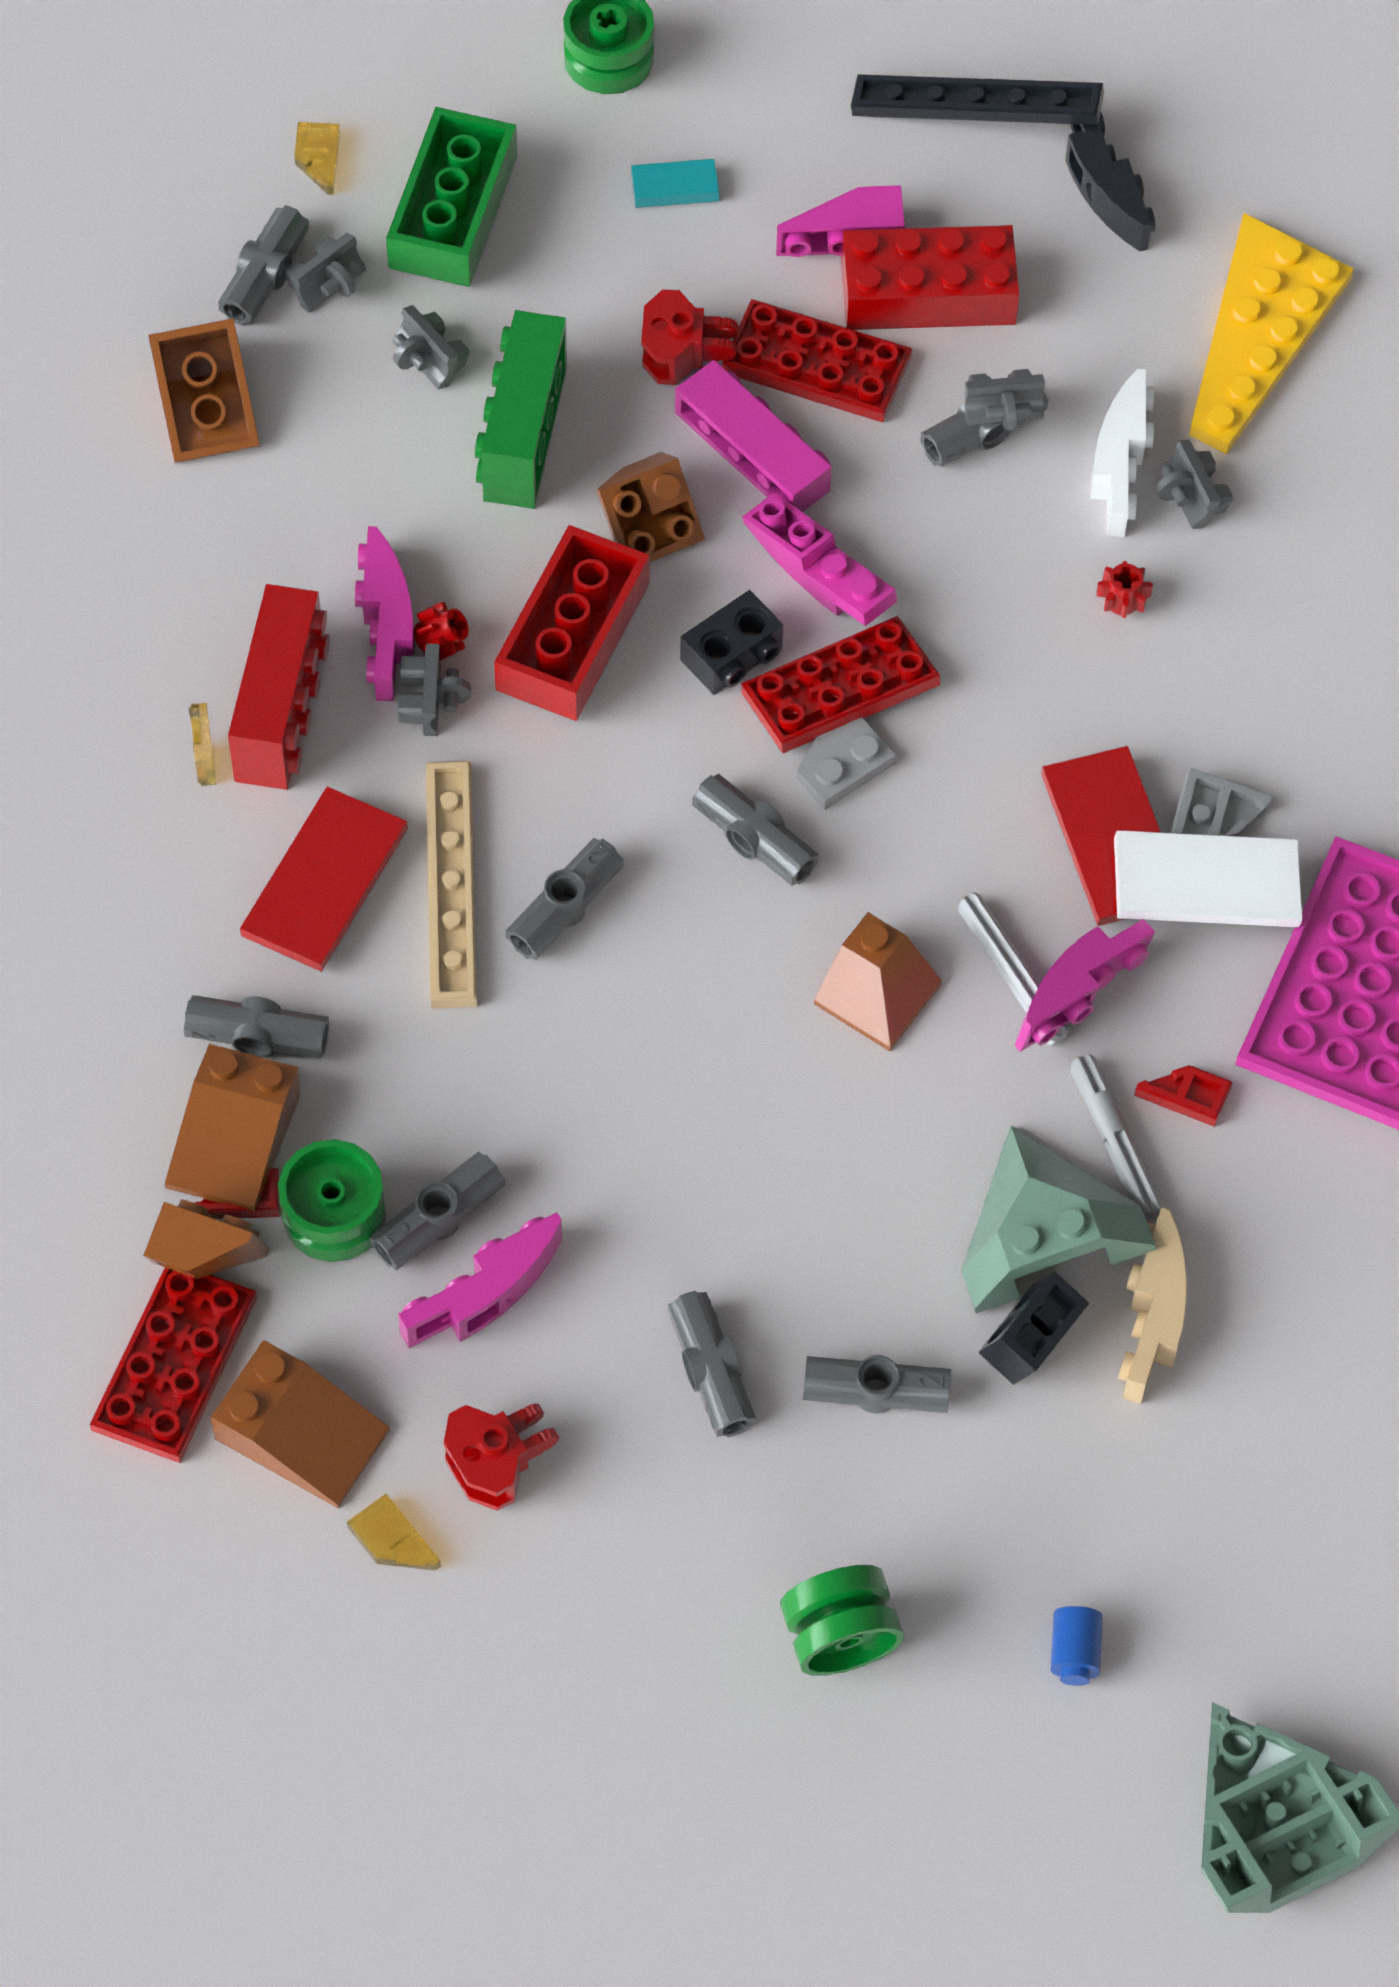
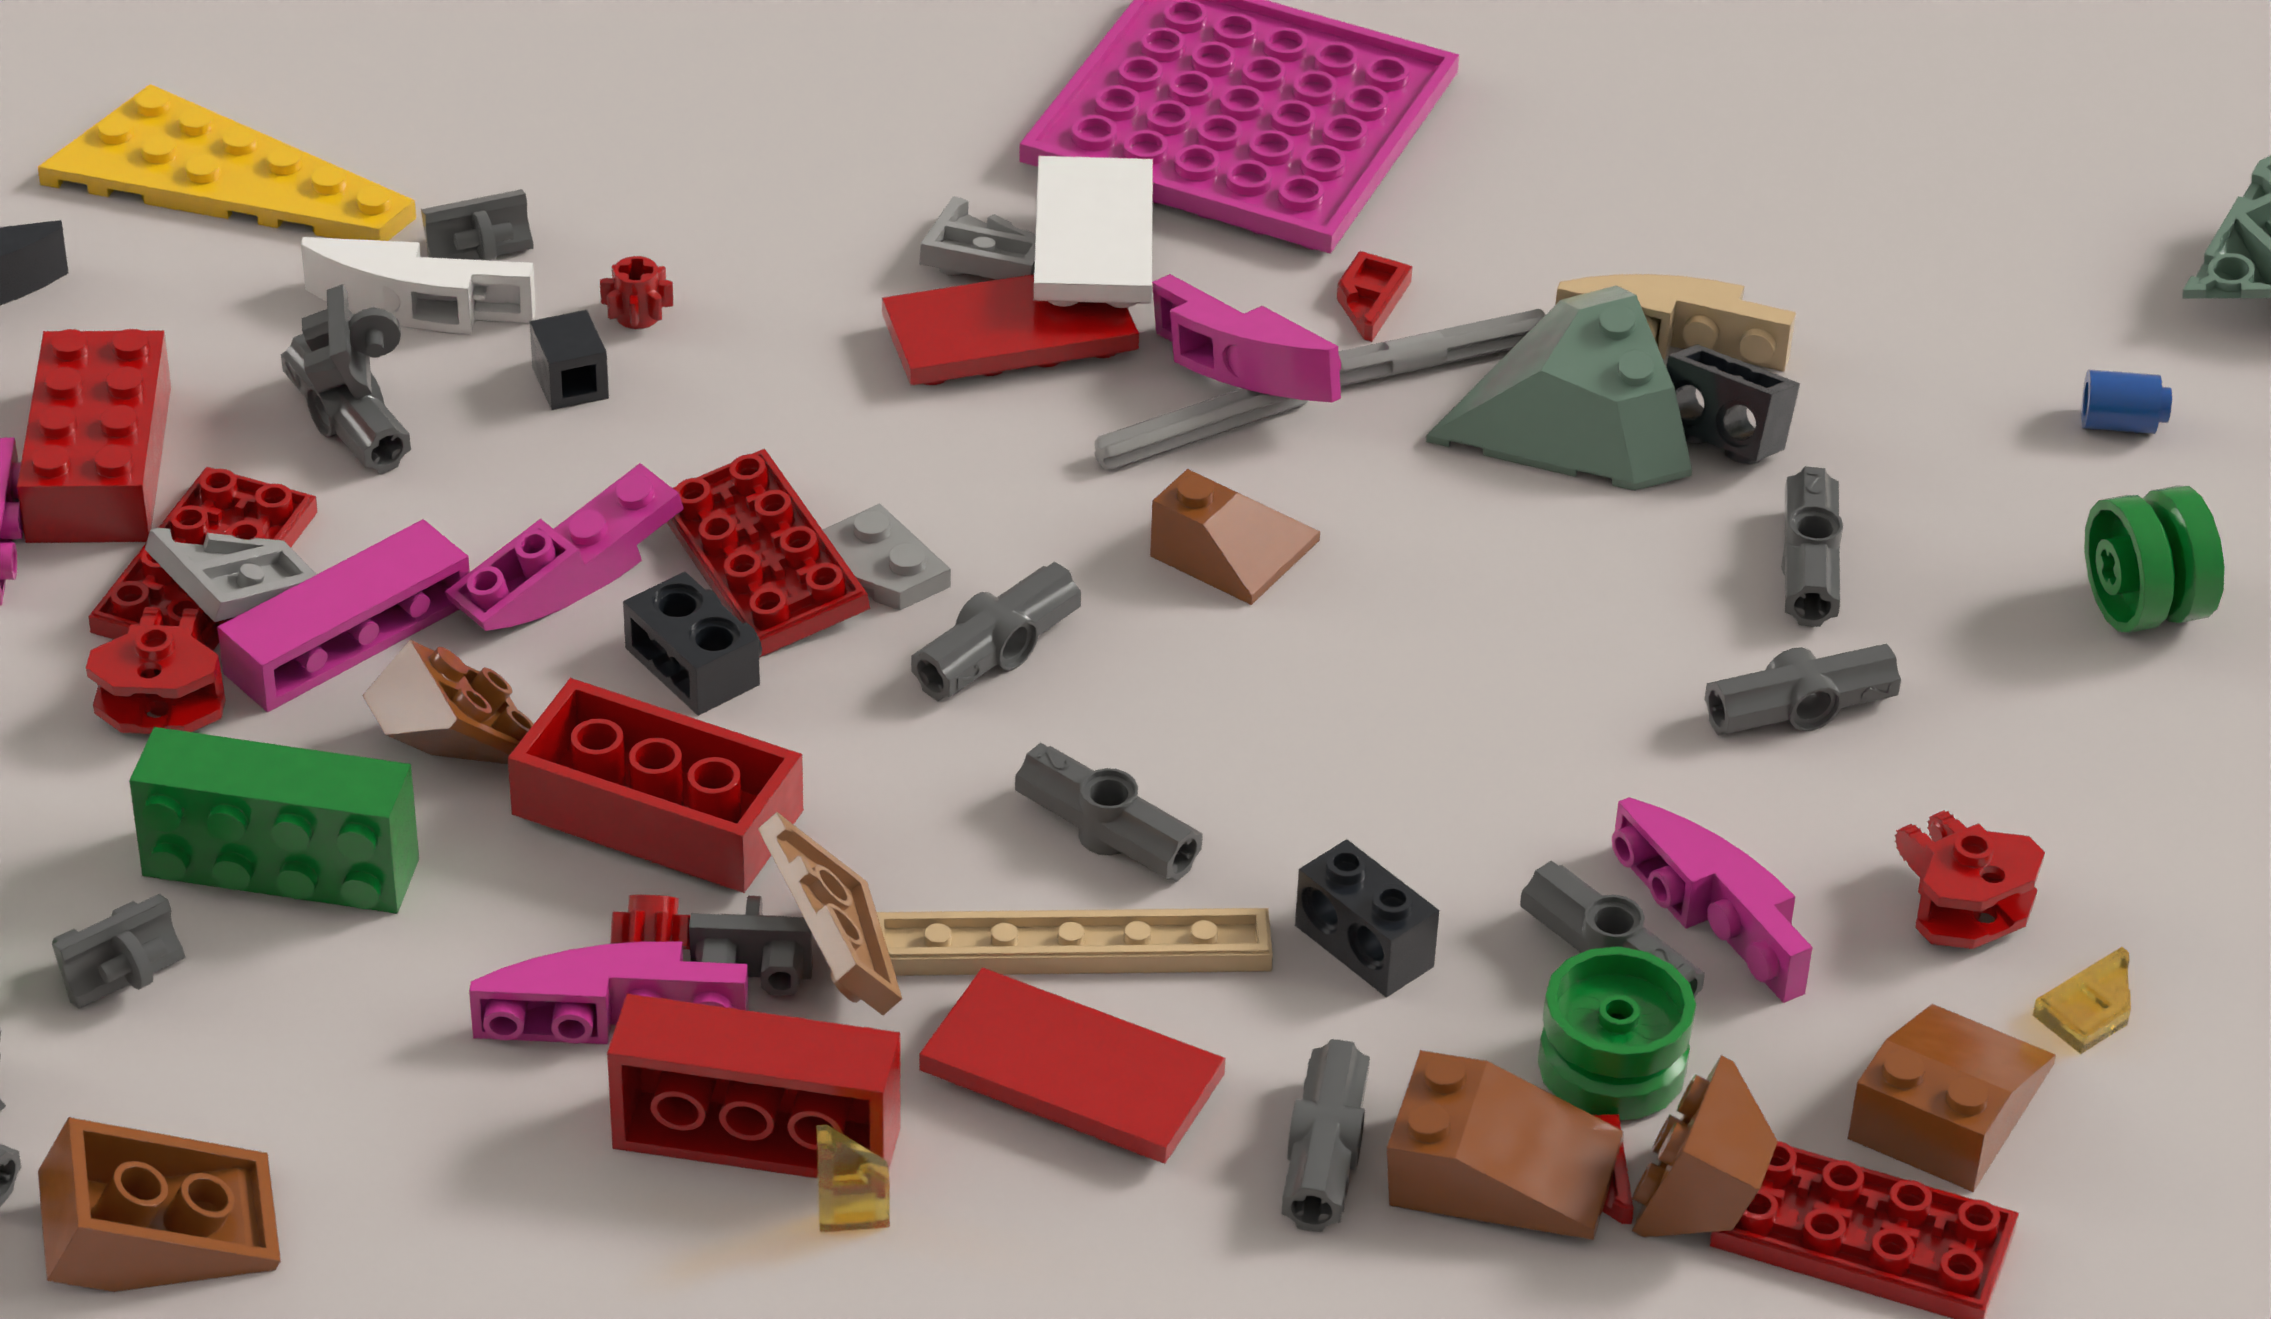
camera: 90 degrees left, 20 degrees down
(439, 729) = (838, 913): none -> medium nougat wing
(455, 1053) = (1366, 918): none -> black brick
(772, 364) = (228, 572): none -> light grey wing
(1041, 551) = (569, 359): none -> black brick

